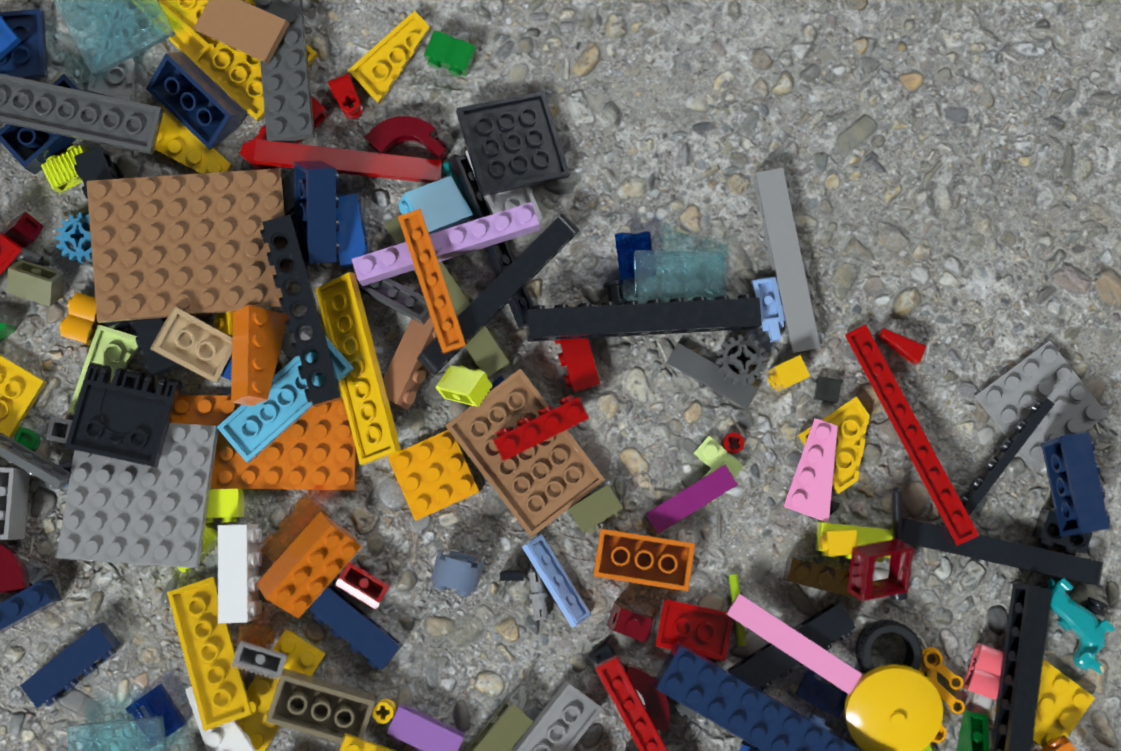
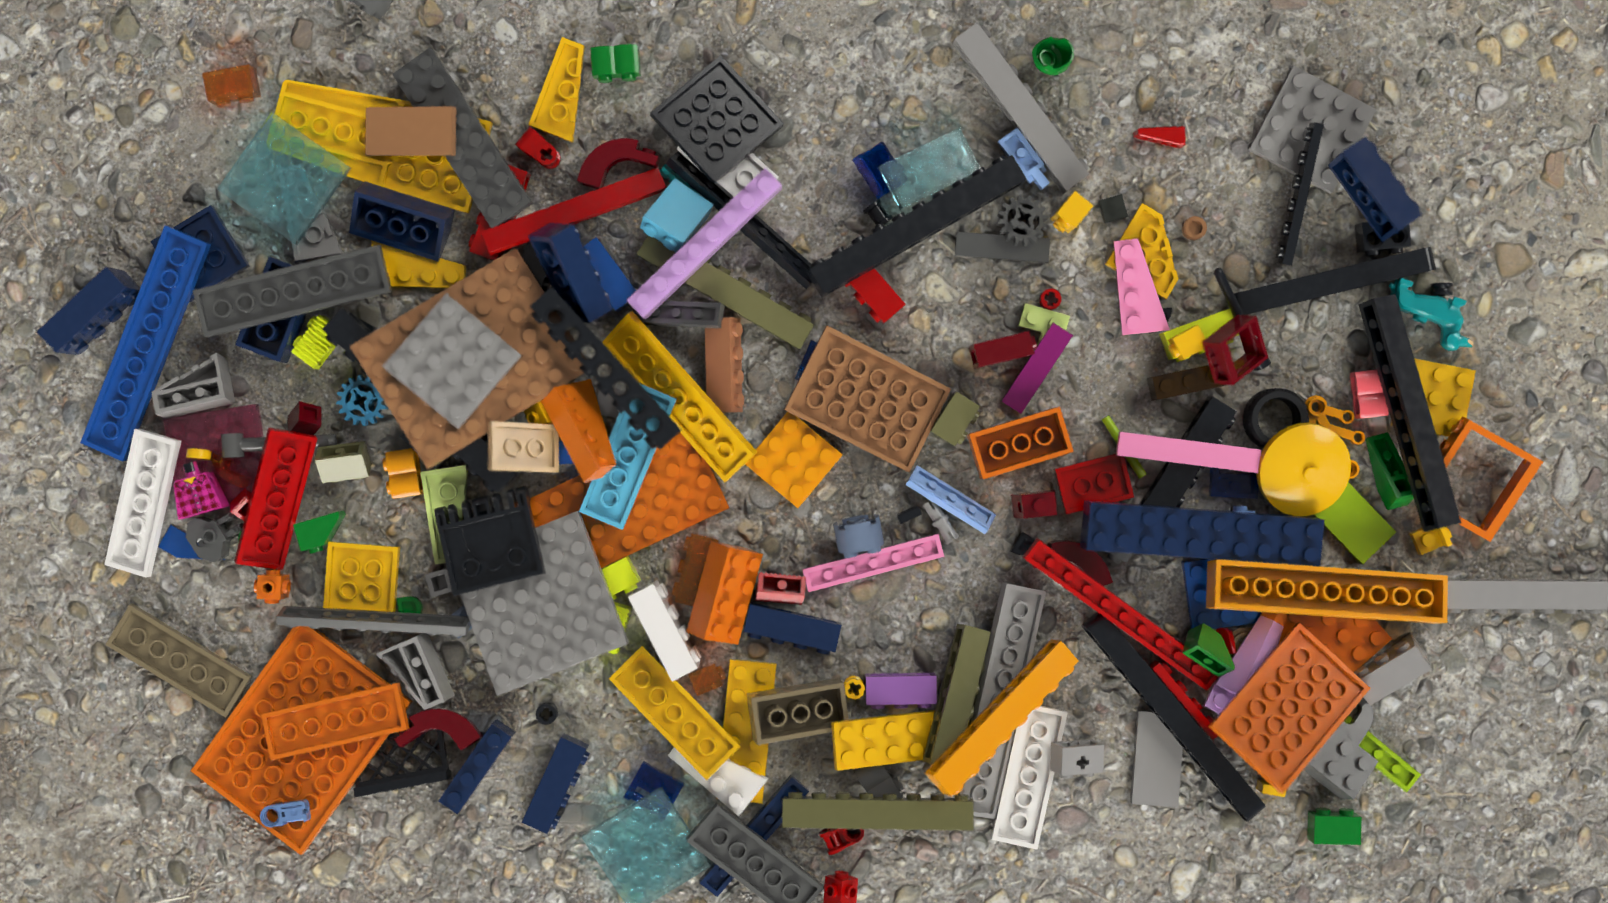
camera: 30 degrees left, 5 degrees up
(104, 593) = (541, 708): none -> black bush
(169, 237) = (452, 361): none -> light grey plate
(259, 660) = (723, 696): light grey brick -> none
(432, 281) = (711, 285): orange plate -> none
(451, 603) = (871, 564): none -> bright pink plate
(464, 385) = (783, 365): neon yellow brick -> none
(503, 289) = (774, 266): black beam -> none
(536, 430) = (873, 369): red brick -> none
(668, 467) = (1002, 349): none -> dark red brick
(836, 228) = (1053, 55): none -> green hair
(891, 443) = (1194, 228): none -> medium nougat tile
(911, 435) = (1207, 213): red plate -> none

